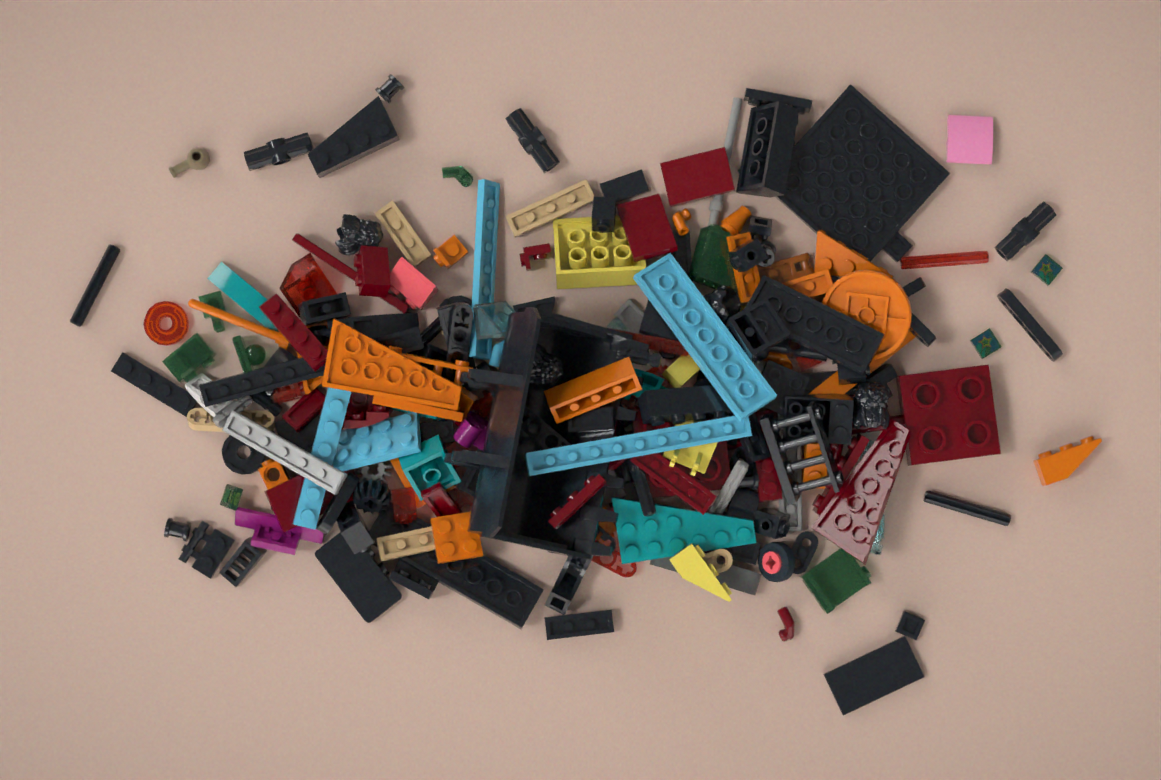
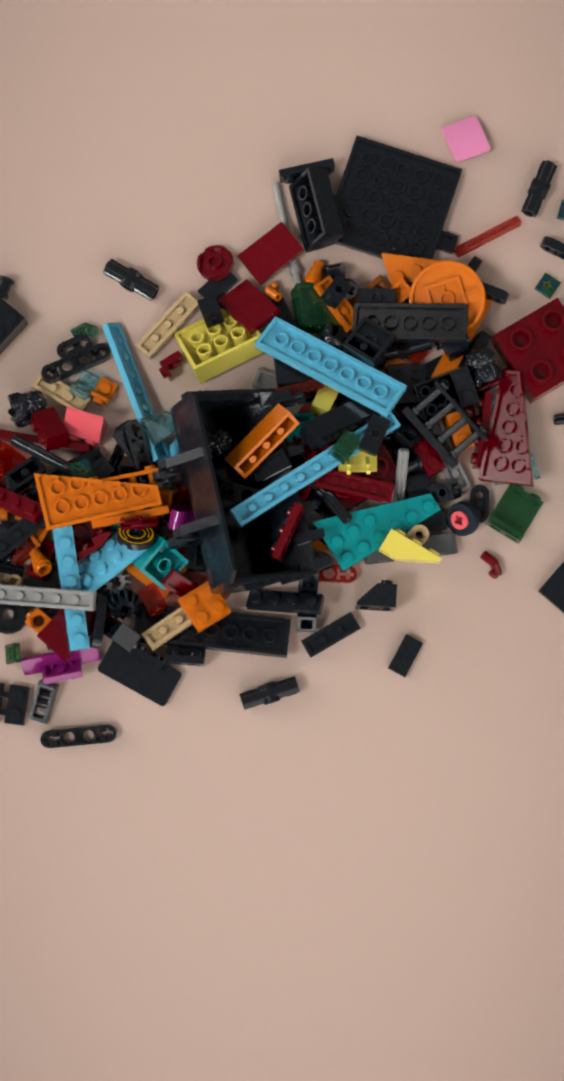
camera: 20 degrees left, 5 degrees down
(263, 619) = (78, 736): none -> black beam
(301, 414) = (40, 563): none -> orange cone
(355, 299) = (41, 454): none -> black axle
(388, 333) = (82, 469): none -> clear green tile
(418, 422) = (140, 542): none -> black tile
(423, 419) = (138, 522): none -> dark red axle
(431, 236) = (84, 384): none -> clear light blue bracket
(432, 203) = (74, 361): none -> black beam
(438, 194) = (71, 343): none -> black beam
(486, 658) = (269, 693): none -> black piece
(546, 570) = (285, 602): none -> black plate
(632, 161) = (215, 263): none -> dark red tile
(648, 608) = (379, 598): none -> black slope
(649, 681) = (405, 655): none -> black tile
(679, 436) = (345, 446): none -> clear green brick
(717, 435) = (374, 435): none -> black plate
(791, 277) = (376, 295): none -> black plate

